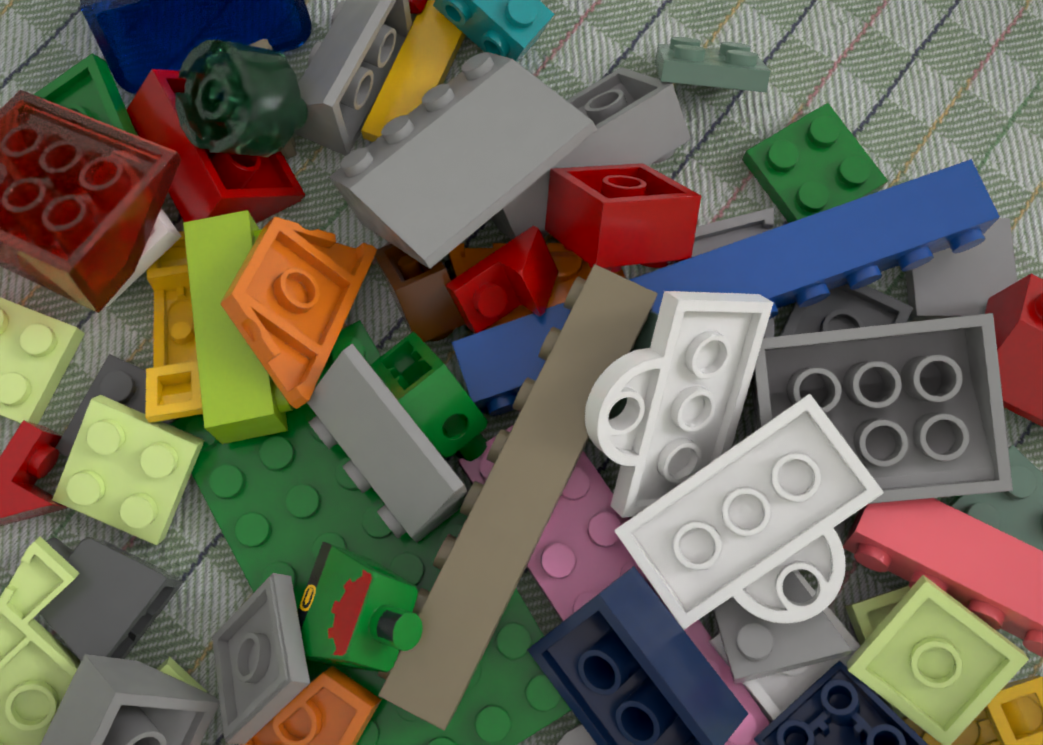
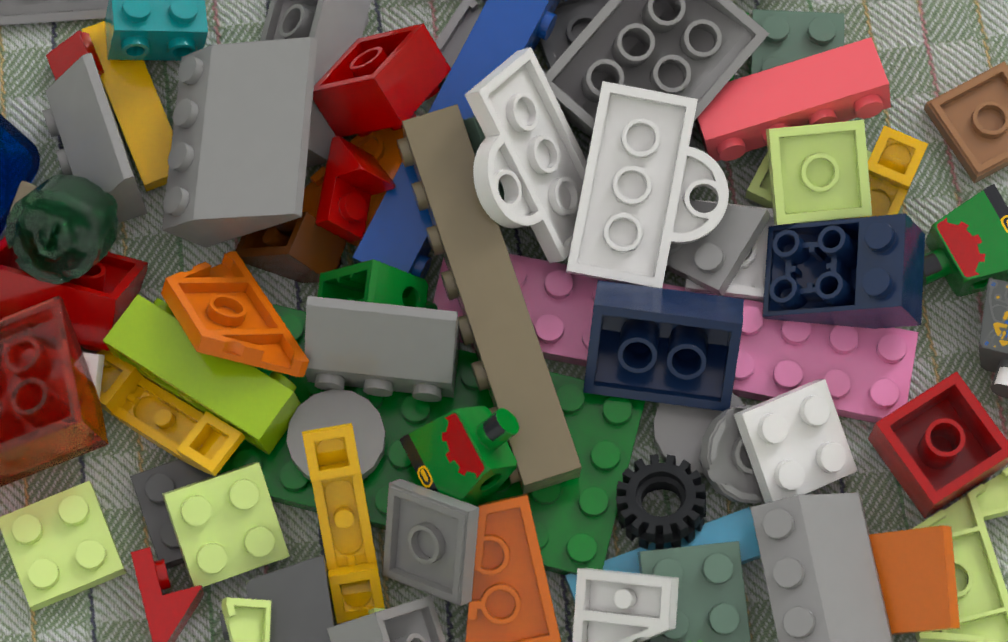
camera: 40 degrees left, 5 degrees down
(217, 568) = (343, 521): none -> yellow slope
(284, 485) = (333, 409): none -> light grey tile

